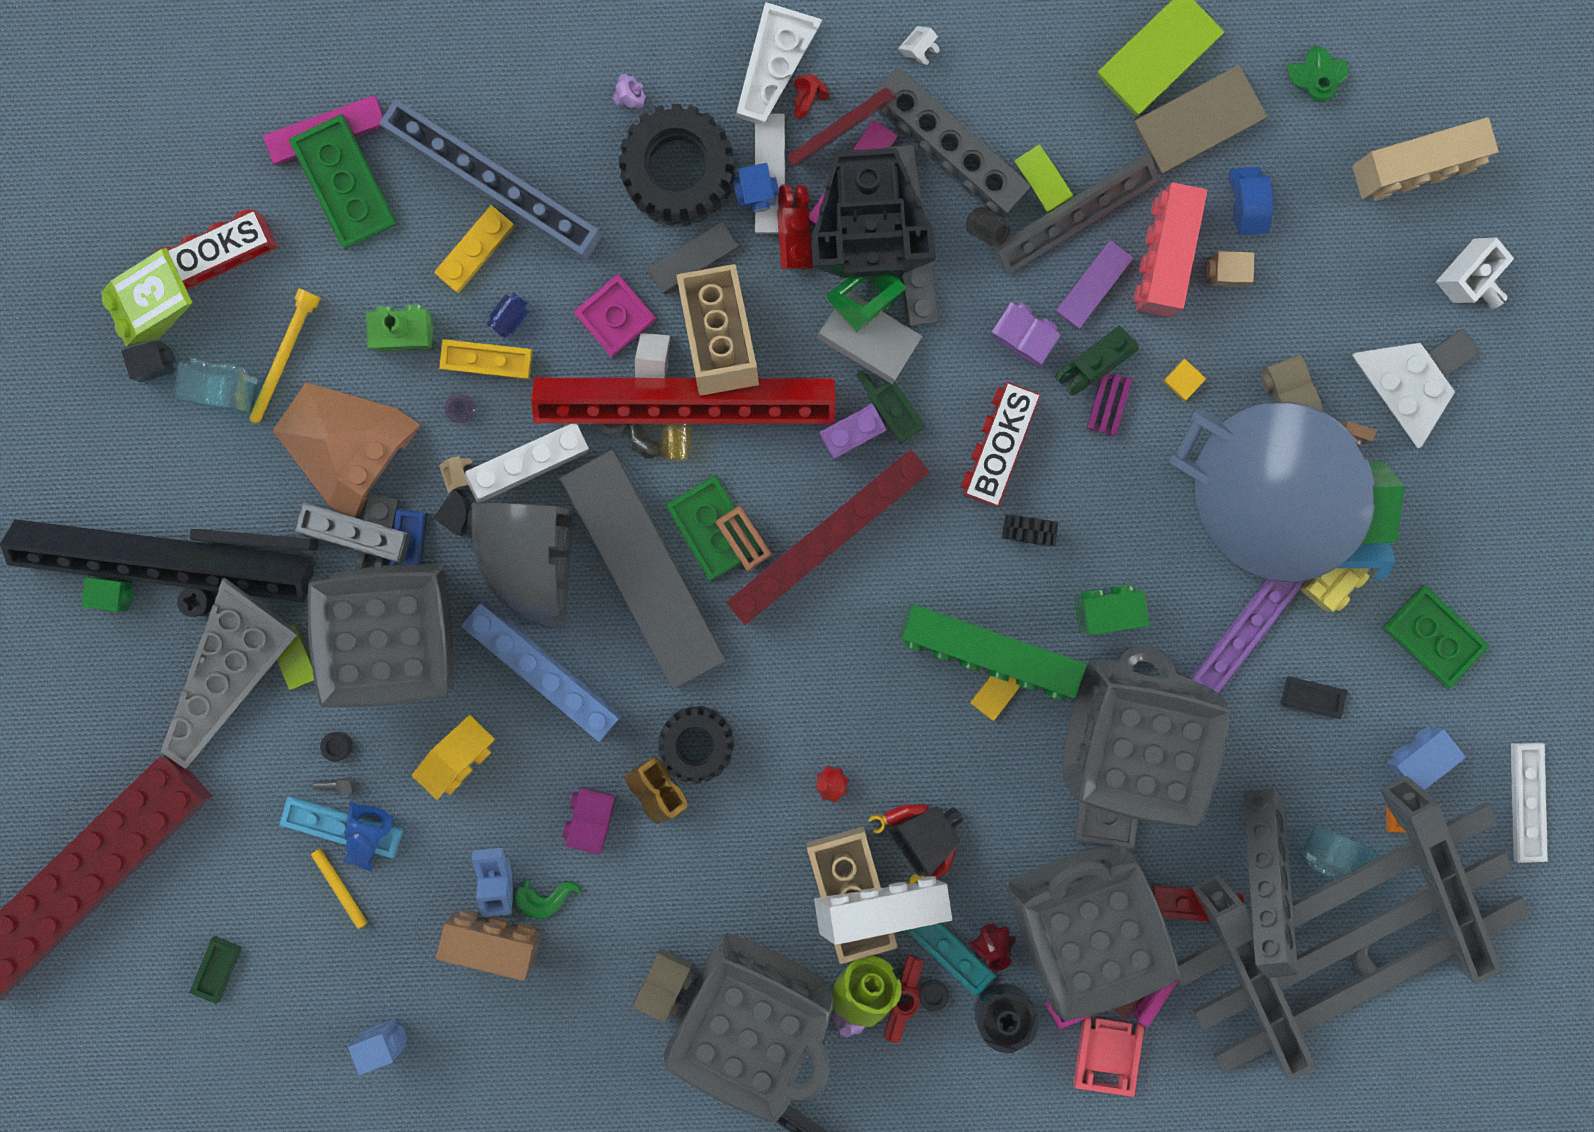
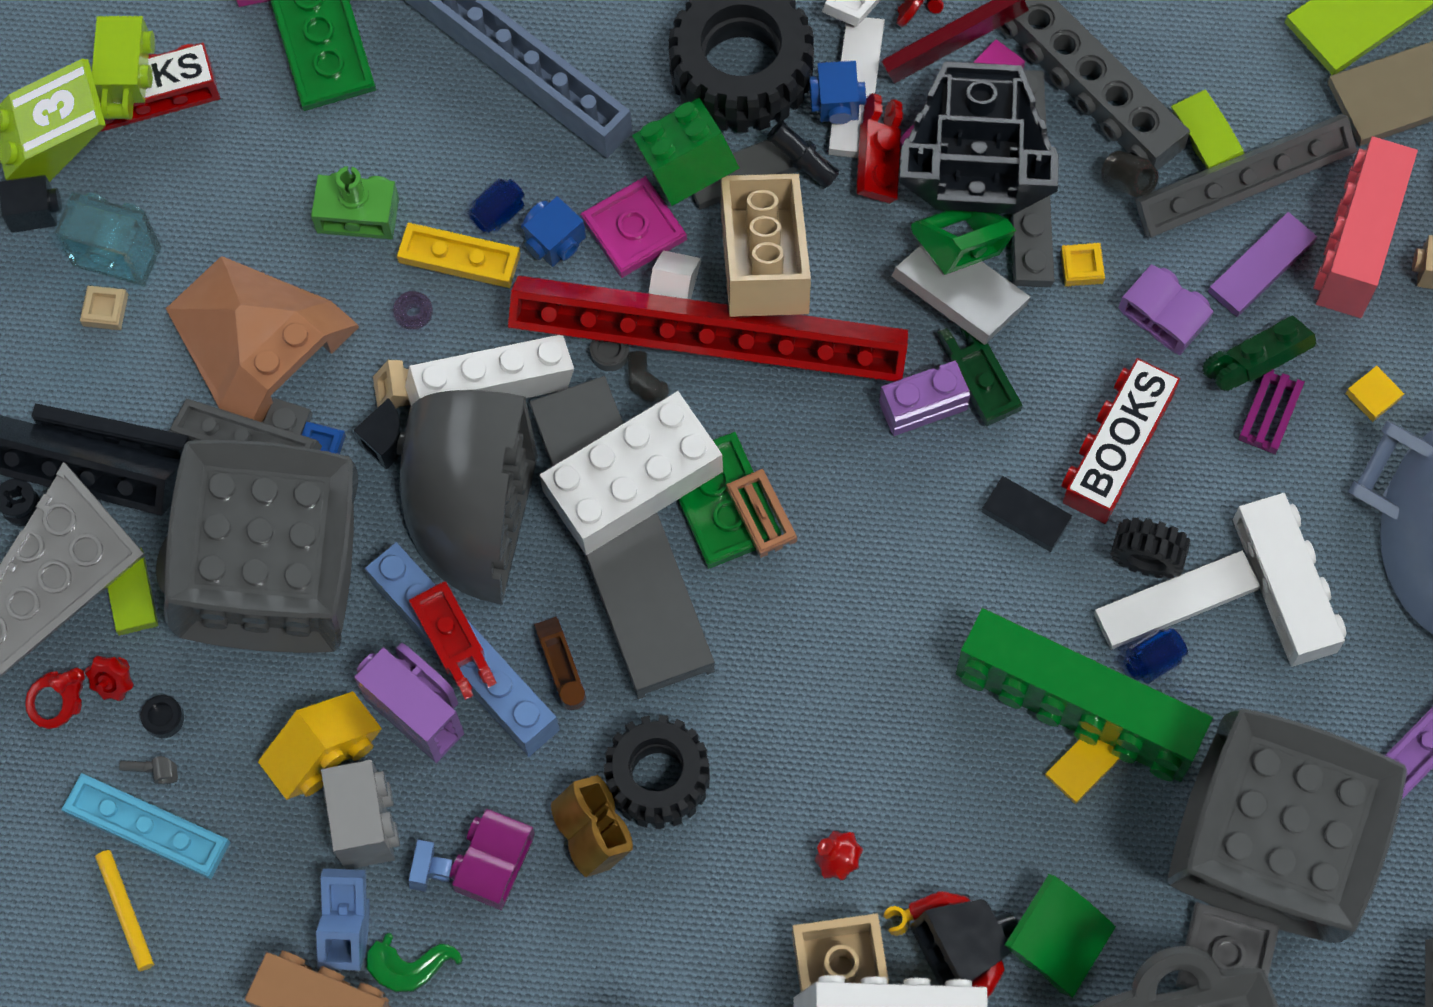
camera: 10 degrees right, 20 degrees down
(193, 243) = (121, 63): none -> lime brick
(225, 436) = (104, 307): none -> tan tile
(258, 737) = (69, 686): none -> red piece
(292, 725) = (109, 677): none -> red piece
(305, 303) = (242, 161): yellow piece -> none
(364, 838) = (174, 835): blue hair -> none
(474, 249) = (467, 128): yellow plate -> none
(491, 807) = (358, 814): none -> light grey brick
(512, 718) = (412, 699): none -> medium lavender brick
(533, 675) = (451, 635): none -> red hinge
(545, 832) = (426, 866): none -> medium blue tile
(553, 331) = (553, 231): none -> blue brick
(615, 671) = (561, 664): none -> reddish brown piece
(644, 530) = (632, 472): none -> white brick
(645, 257) = (685, 151): none -> green brick
(676, 440) = (691, 378): clear yellow brick -> none
(736, 243) = (803, 154): none -> black pin
(828, 537) = (873, 526): dark red brick -> none
(937, 509) = (1026, 513): none -> black tile
(958, 302) = (1082, 264): none -> yellow tile
(992, 822) = (1060, 935): none -> green slope
(1040, 607) = (1155, 655): none -> clear blue brick
(1052, 561) = (1176, 599): none -> white tile
(1112, 611) = (1253, 664): green brick -> none
(1131, 537) = (1289, 579): none -> white brick

